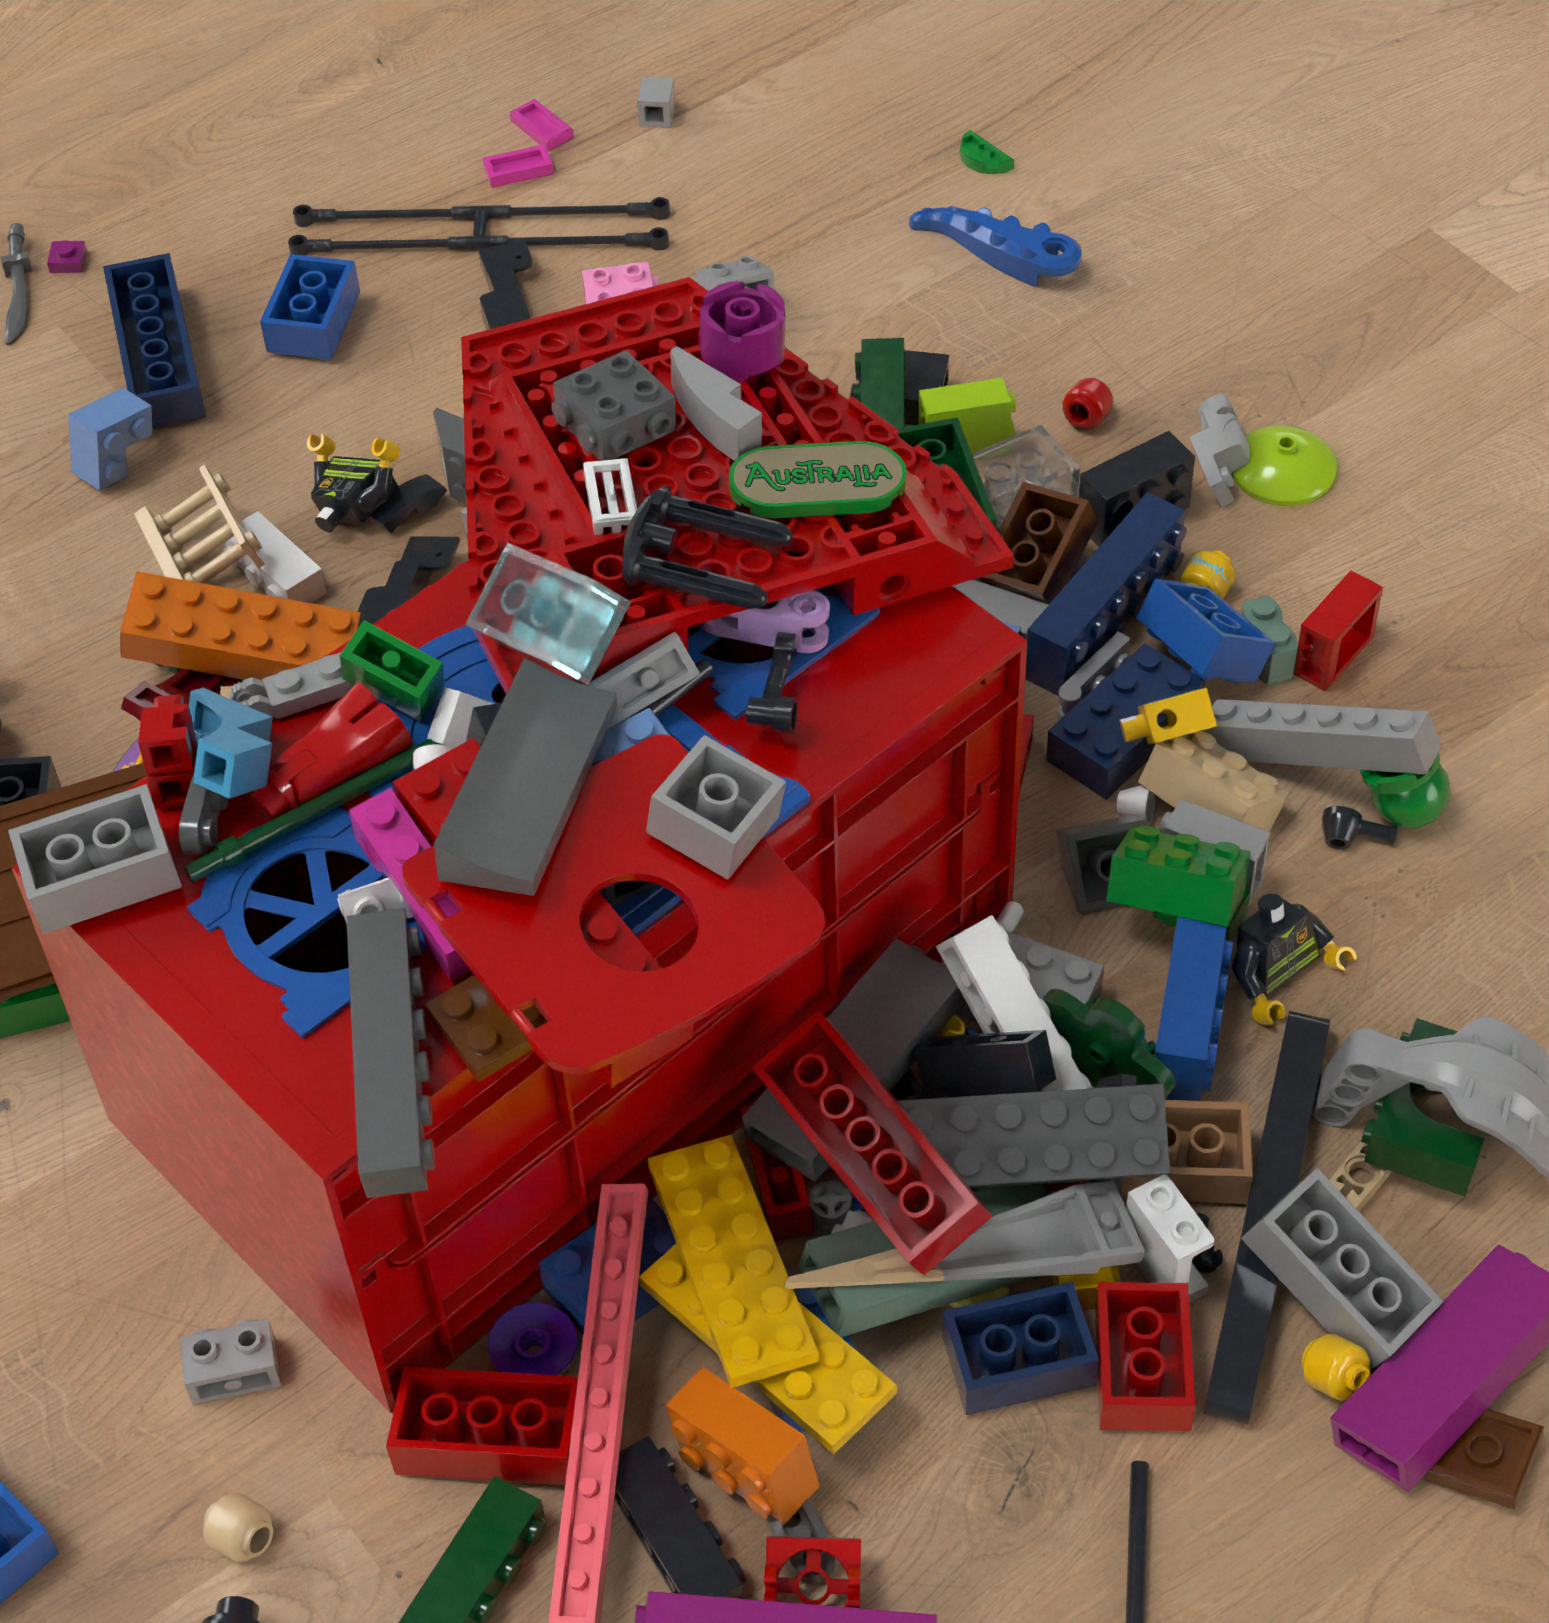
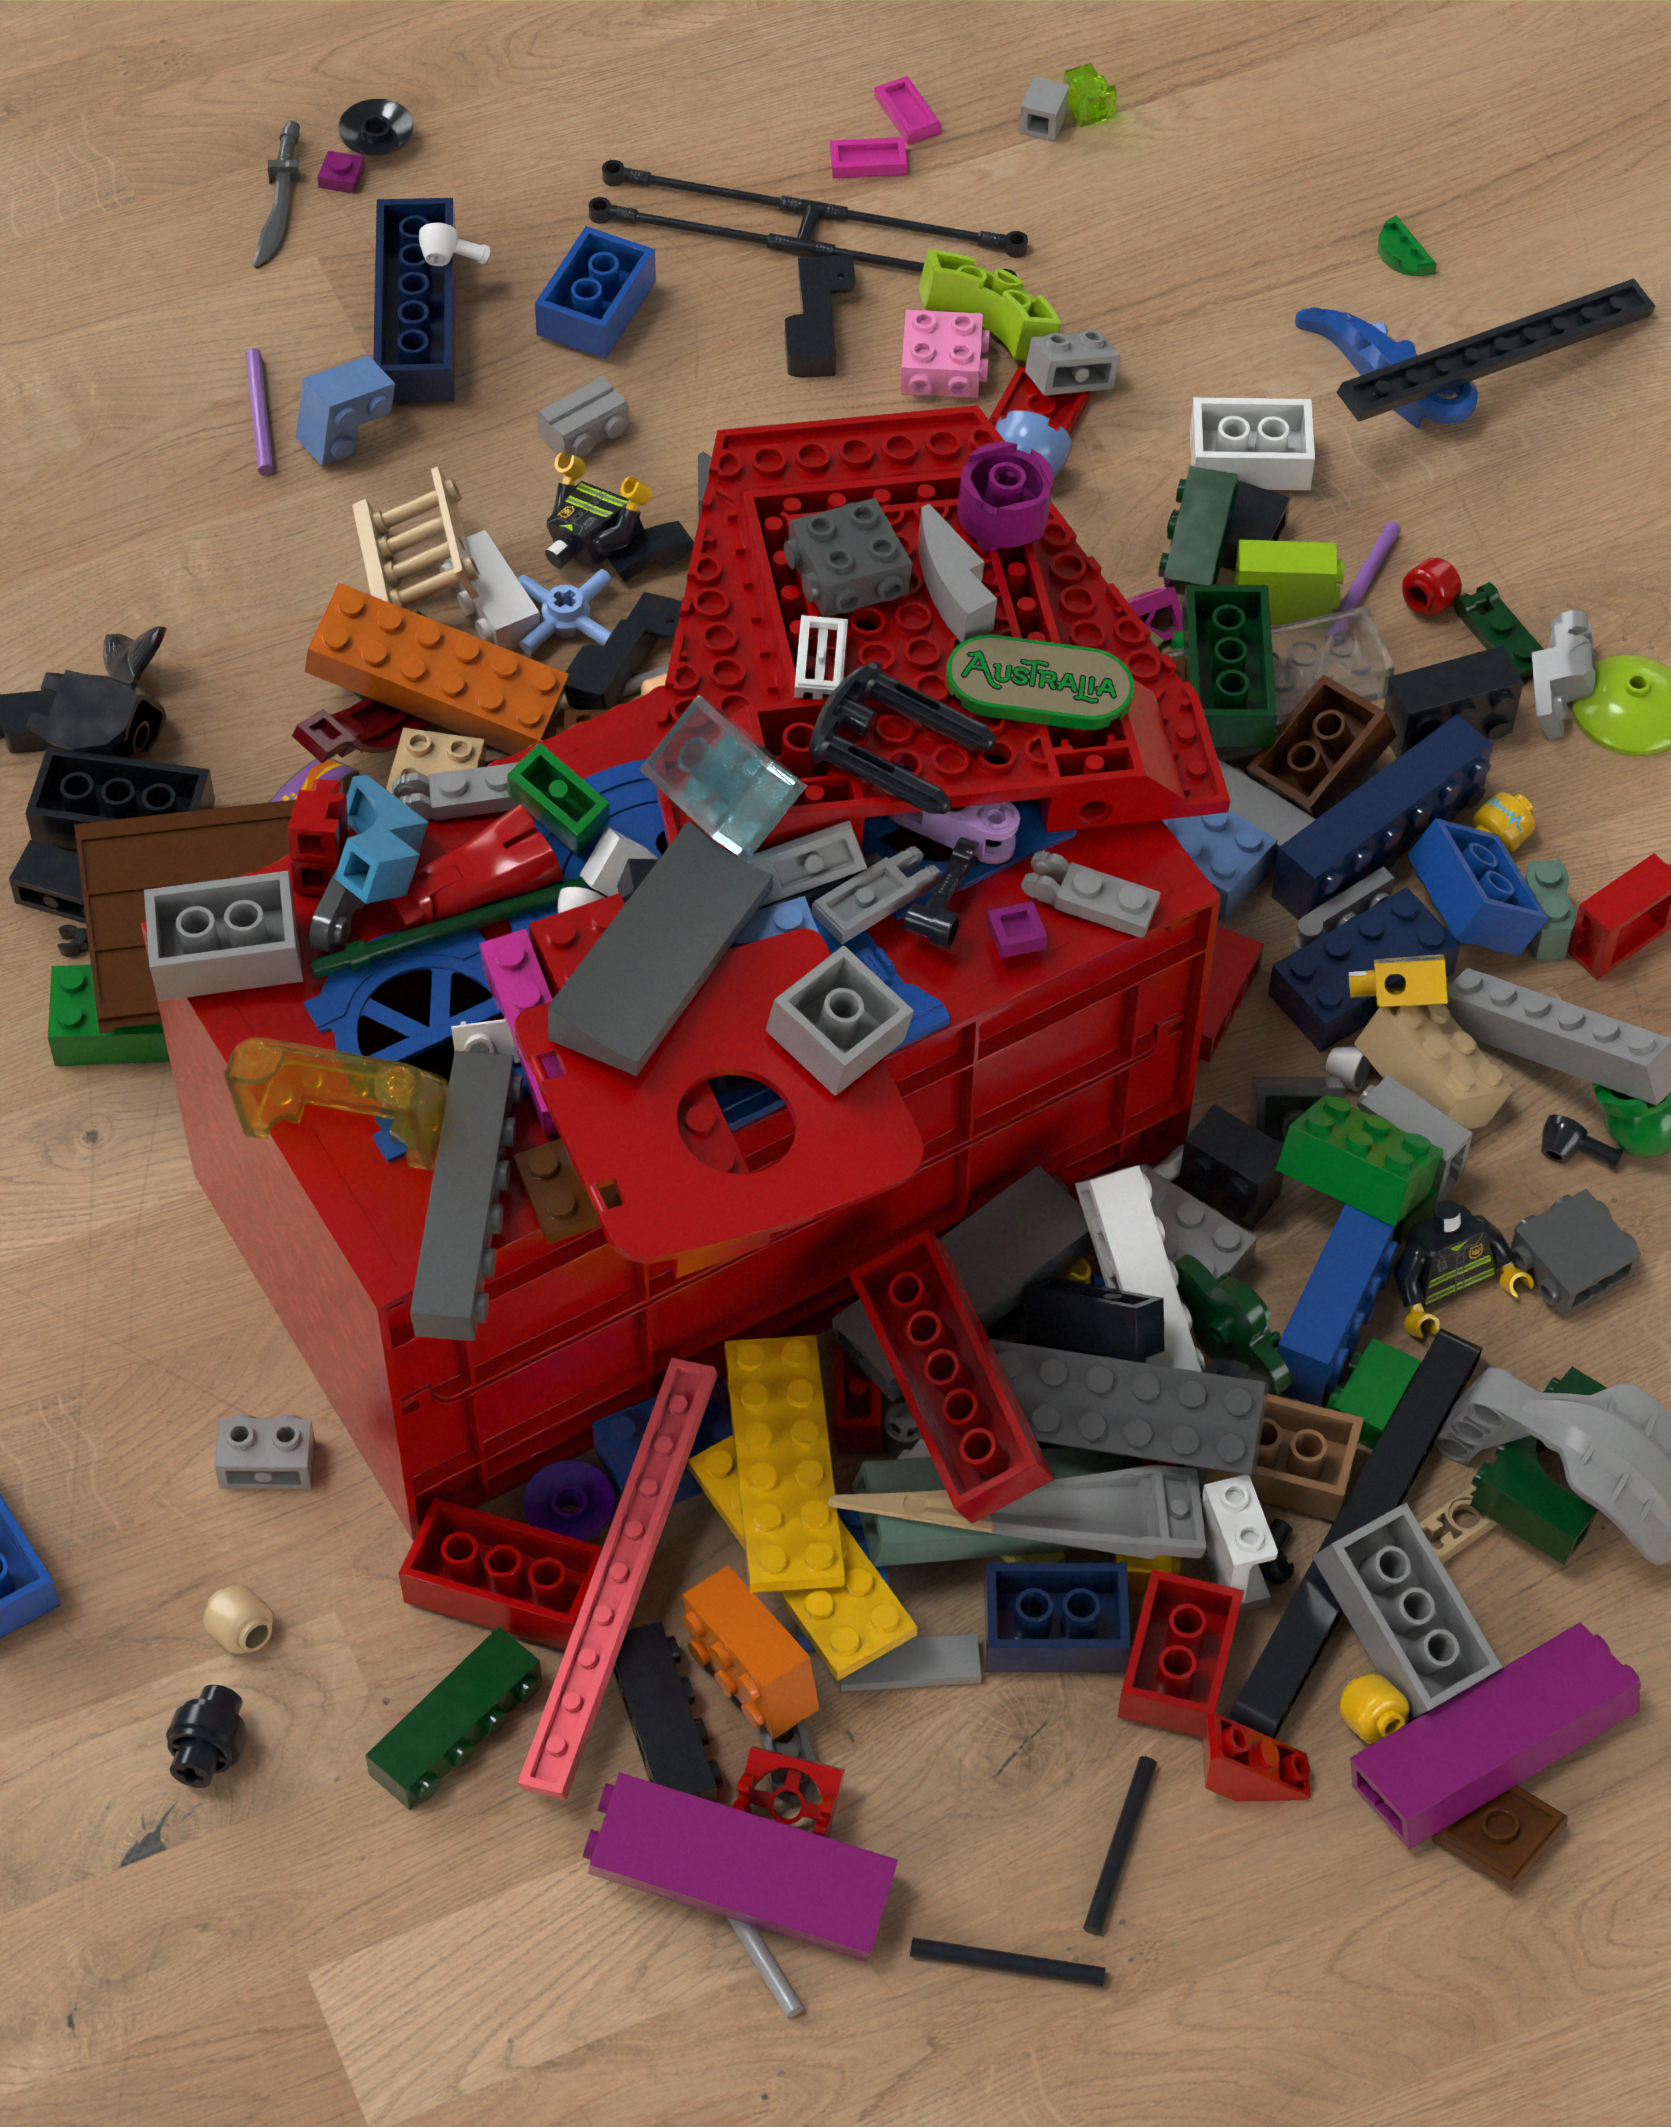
camera: 10 degrees right, 5 degrees up
(35, 458) = (259, 412): none -> medium lavender bar
(90, 215) = (376, 127): none -> black dish
(166, 287) = (441, 240): none -> white bar
(180, 974) = (277, 1078): none -> clear yellow windscreen
(323, 407) = (584, 418): none -> light grey brick
(344, 565) = (565, 611): none -> light blue bar
(669, 257) = (1010, 312): none -> lime brick
(691, 85) = (1089, 95): none -> clear neon green brick
(711, 697) = (874, 894): none -> light grey hinge
(851, 703) = (1016, 929): none -> magenta plate
(903, 1421) = (920, 1664): none -> light grey tile
(909, 660) = (1091, 894): none -> light grey hinge
(914, 309) = (1256, 438): none -> white brick
(1031, 397) = (1370, 567): none -> medium lavender bar
(1063, 907) = (1231, 1167): none -> black brick
(1084, 210) = (1495, 350): none -> black plate
(1149, 421) = (1498, 627): none -> dark green plate
(1239, 1445) = (1251, 1765): none -> red slope
(1247, 1075) = (1374, 1388): none -> green brick
(1384, 919) = (1574, 1251): none -> dark grey brick

